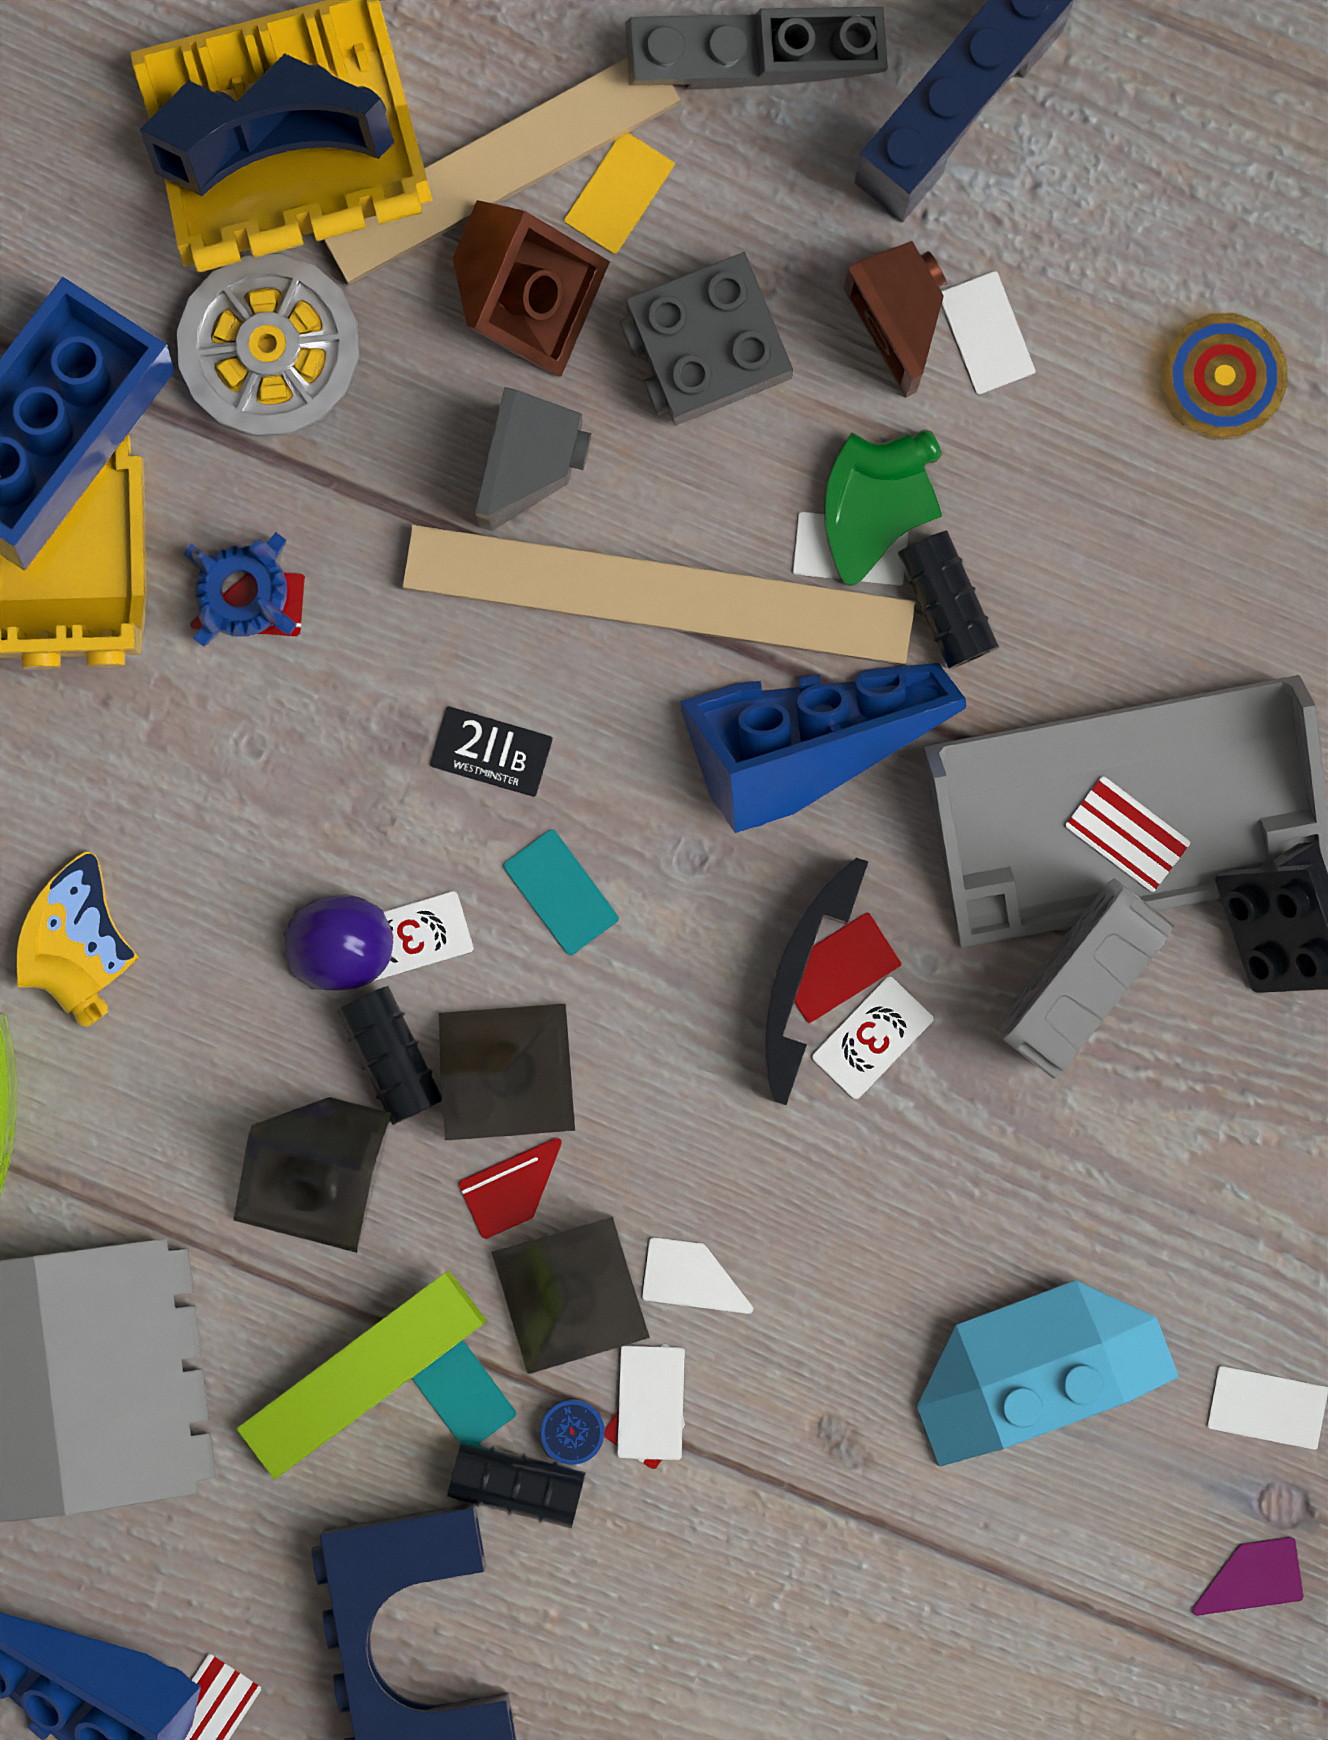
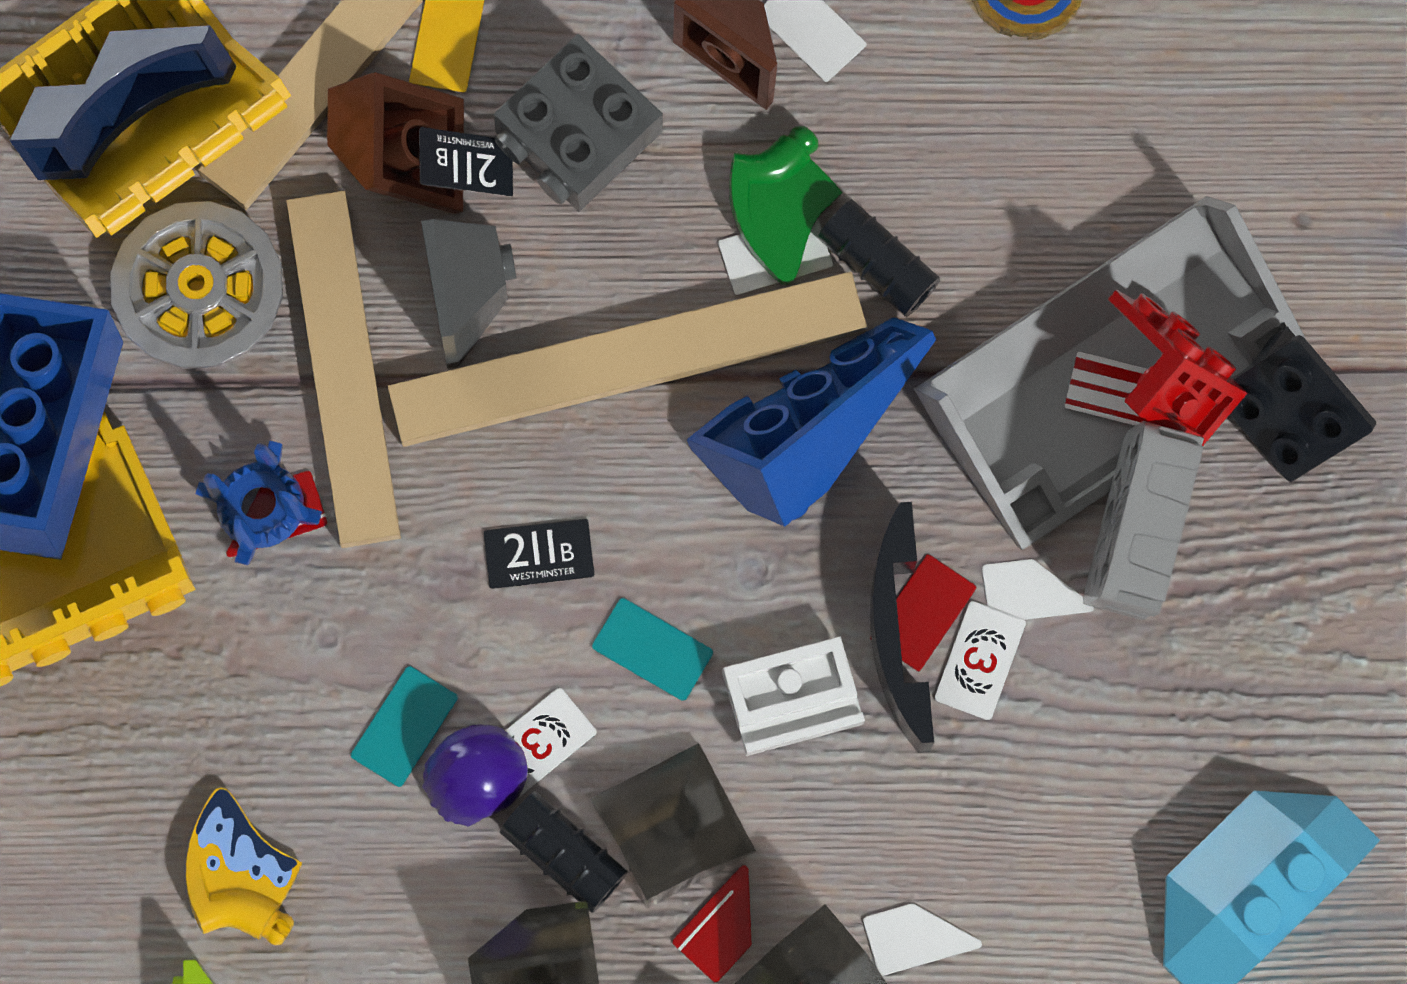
camera: 30 degrees left, 10 degrees down
(291, 865) = (404, 726): none -> teal sticker
(377, 487) = (343, 369): none -> tan tile
(580, 330) = (464, 162): none -> black sticker
(674, 998) = (793, 696): none -> white plate
(950, 990) = (1029, 591): none -> white sticker
(1195, 861) = (1187, 385): none -> red bracket

